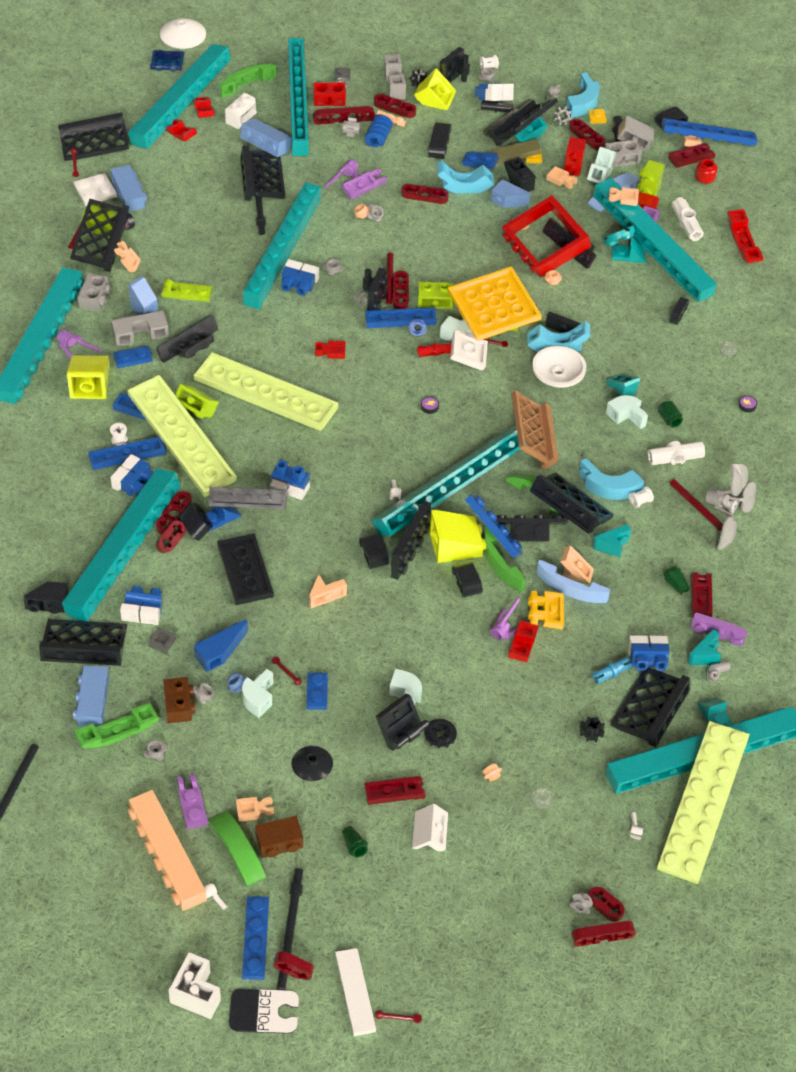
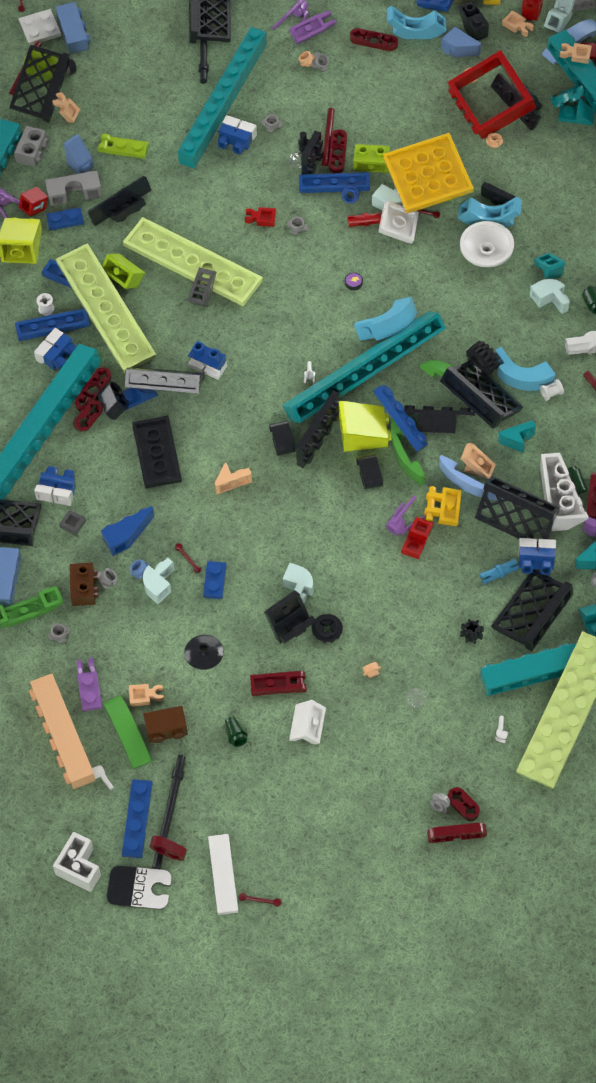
camera: 10 degrees right, 10 degrees up
(99, 341) = (33, 201): none -> red brick
(269, 425) = (208, 288): none -> dark grey slope
(367, 356) = (297, 221): none -> light grey plate
(469, 441) = (389, 323): none -> medium azure arch
(542, 425) = (463, 314): medium nougat fence -> none
(570, 467) = (483, 357): none -> black tyre
(624, 595) = (518, 498): none -> black fence
(665, 597) = (561, 492): none -> white wedge

